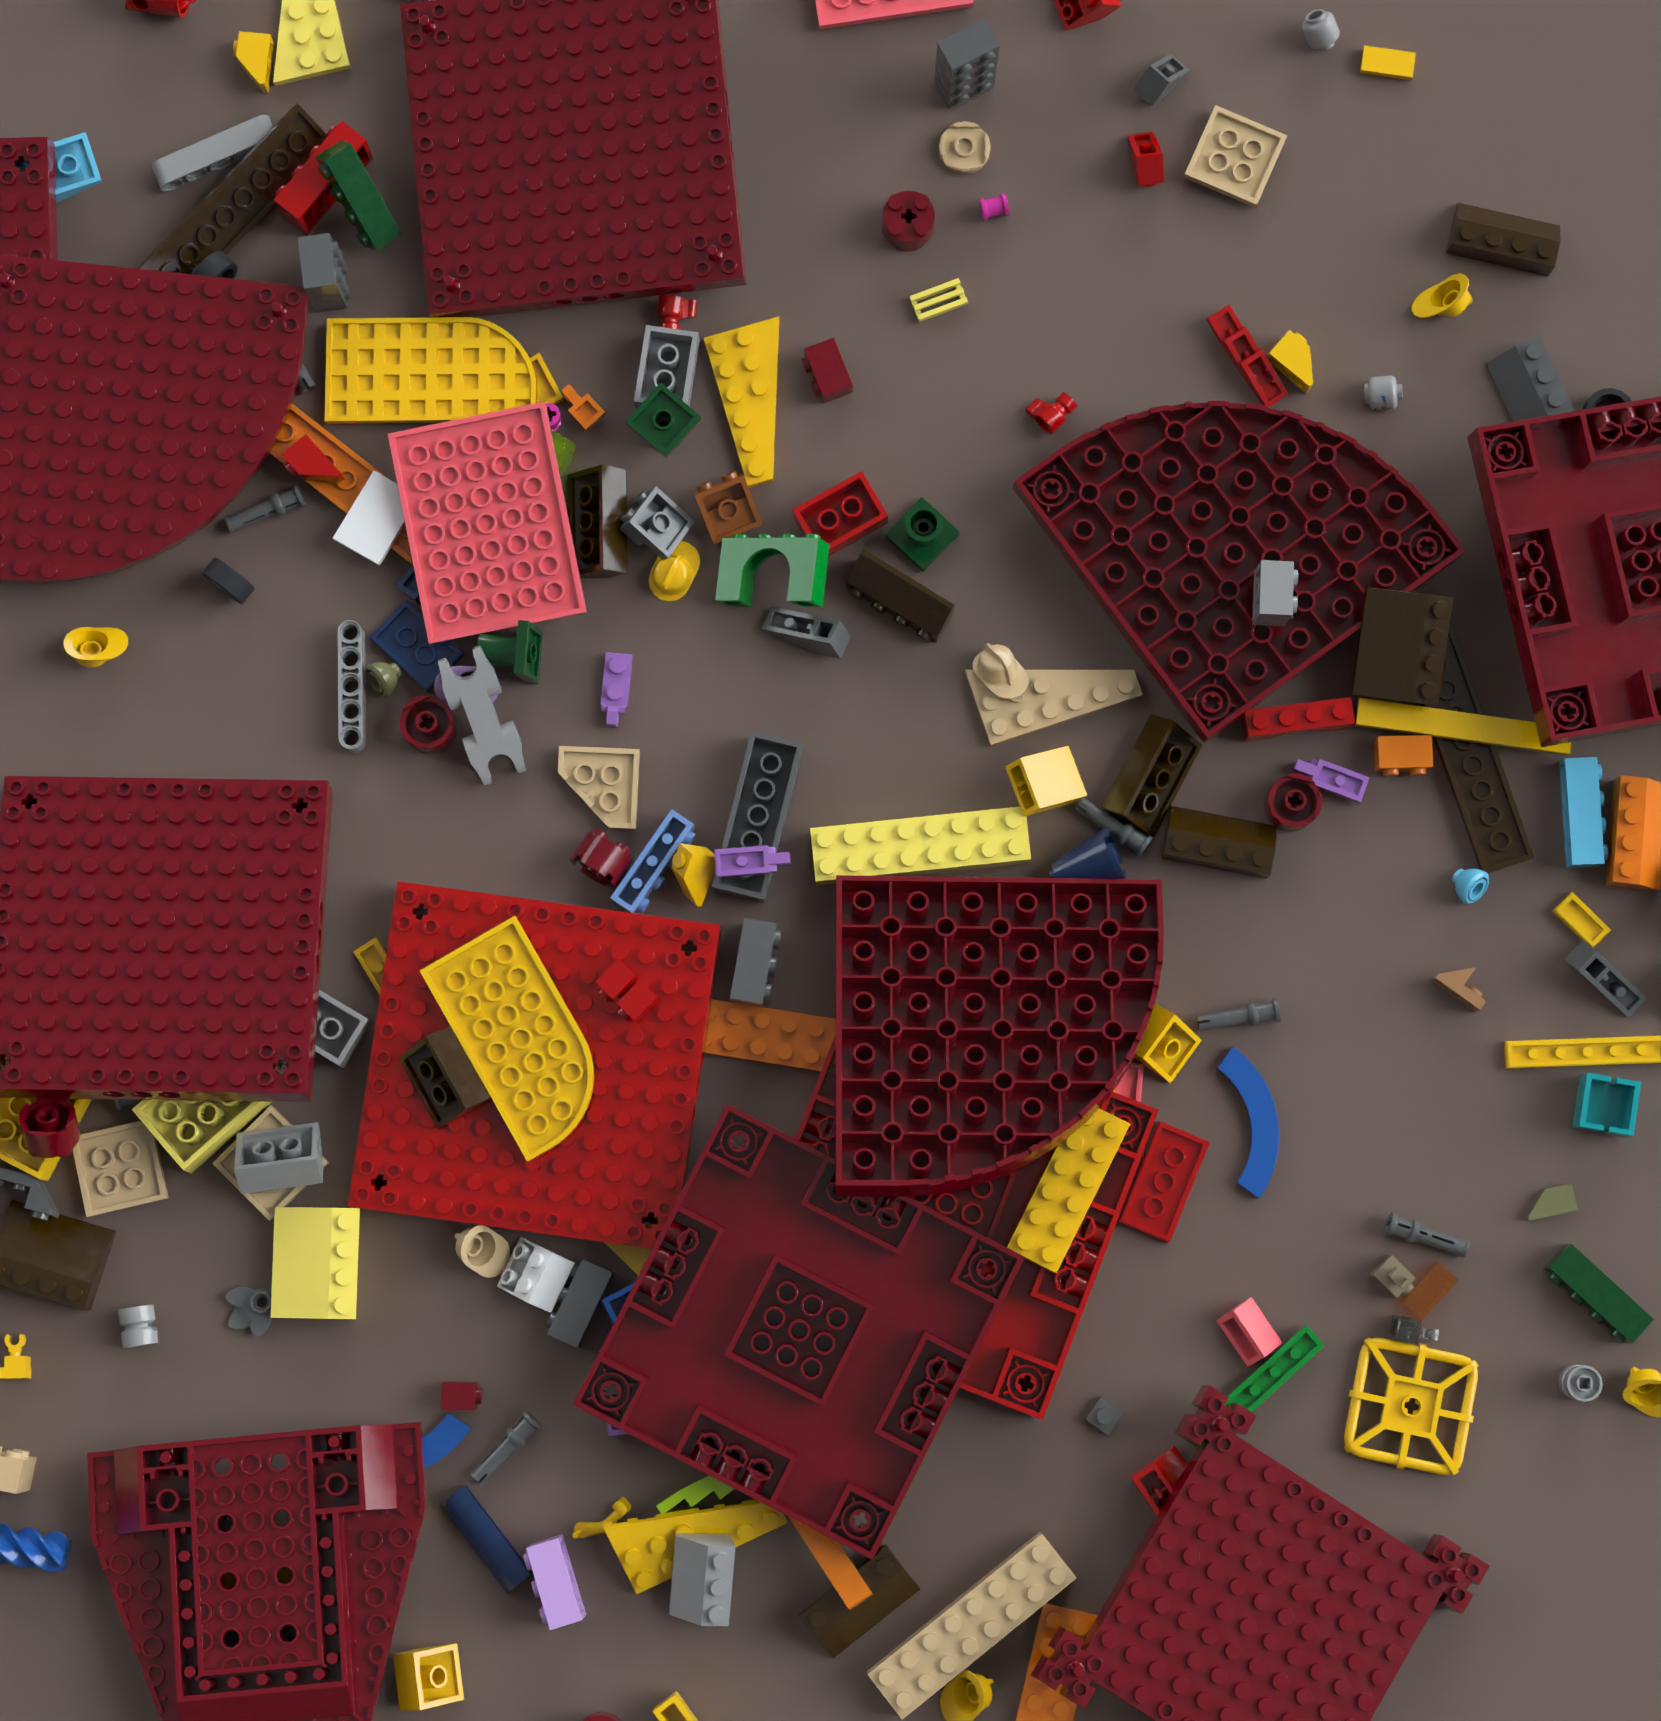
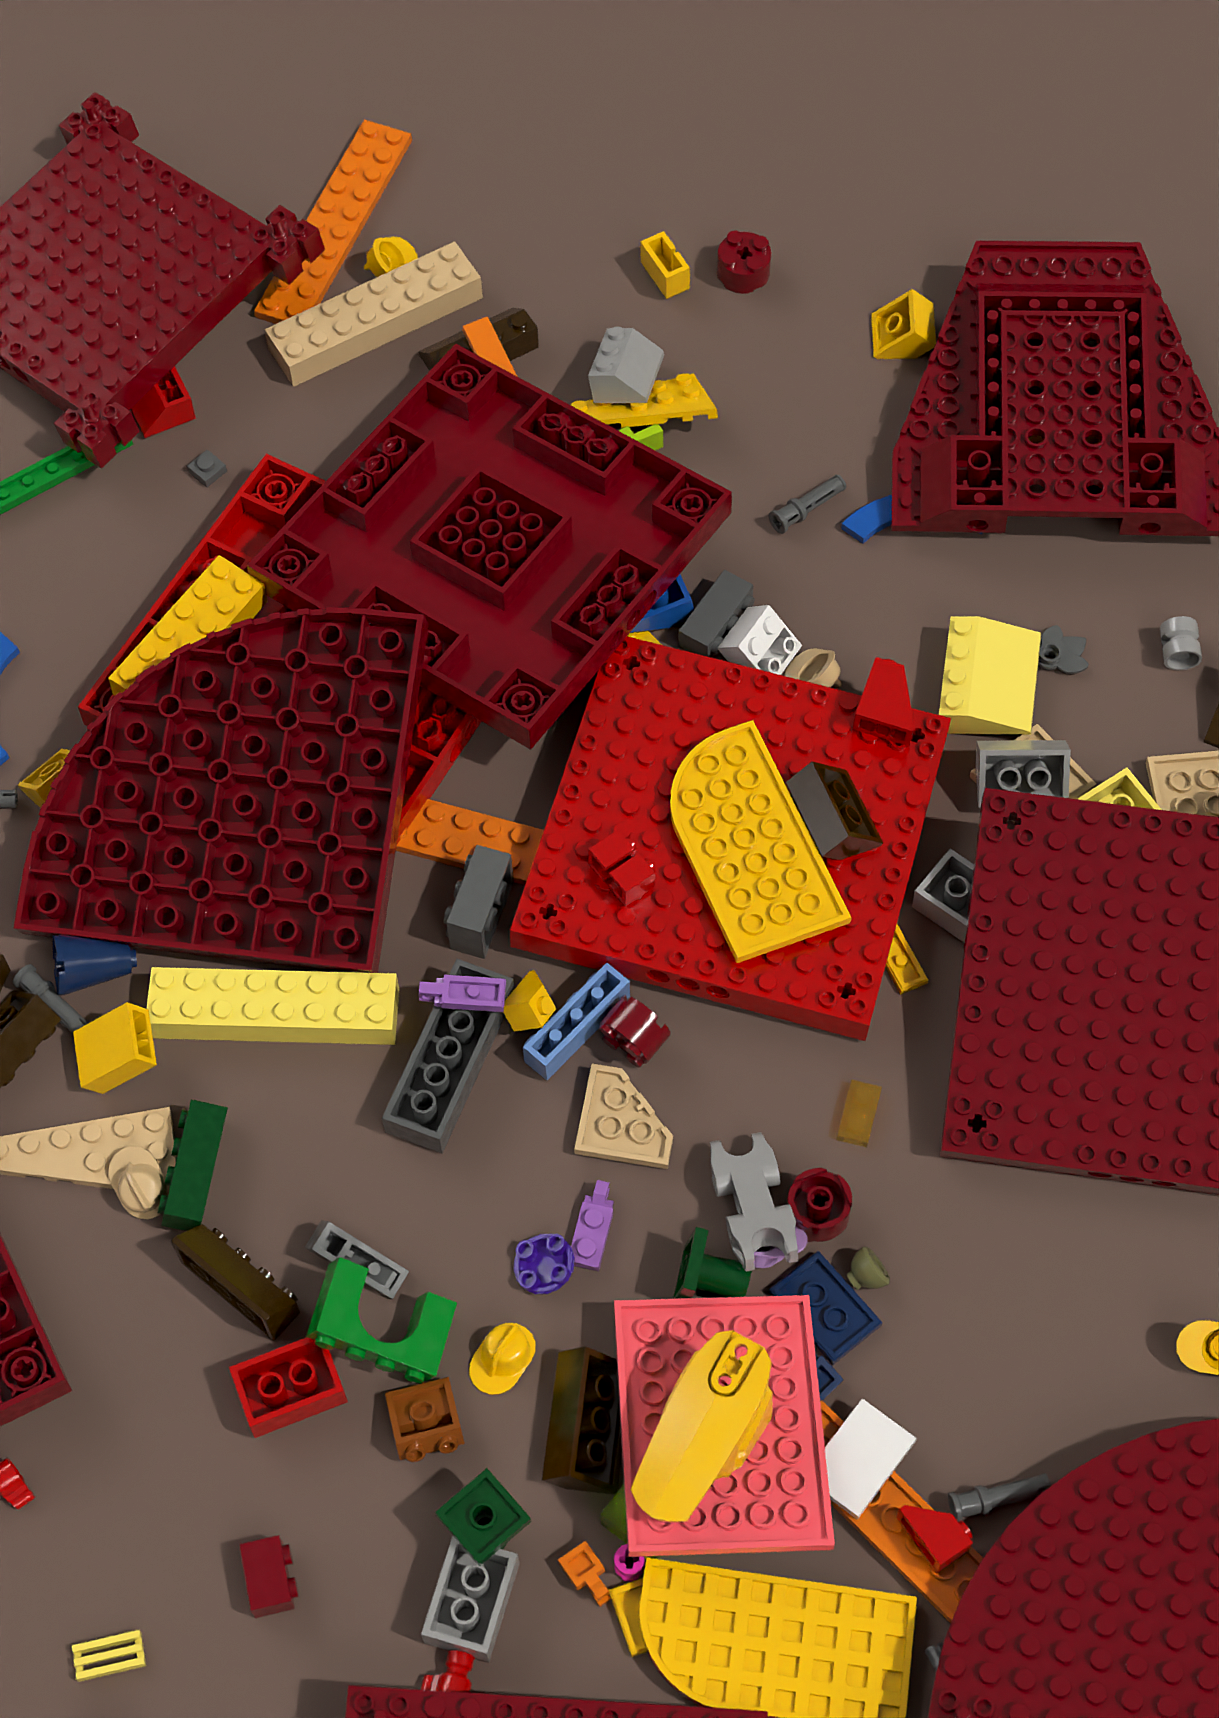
camera: 170 degrees left, 20 degrees down
(228, 580) = (1050, 1403): black tyre -> none
(345, 675) = (902, 1278): light grey beam -> none
(403, 819) = (859, 1113): none -> clear yellow plate
(407, 1202) = (886, 704): none -> red slope
(460, 1395) = (848, 549): dark red brick -> none
(486, 1538) = (834, 432): dark blue brick -> none
(500, 492) = (705, 1427): none -> yellow piece
(554, 1582) = (771, 381): lavender brick -> none
(588, 1529) = (730, 431): yellow piece -> none
(651, 649) = (543, 1263): none -> dark purple dish
(656, 522) = (514, 1406): dark grey plate -> none
(746, 378) = (372, 1585): yellow wing -> none
(920, 546) = (193, 1358): dark green plant -> none
(956, 689) = (194, 1165): none -> dark green brick
(1164, 1182) = (86, 658): red tile -> none
(1249, 1331) = (43, 518): coral brick -> none

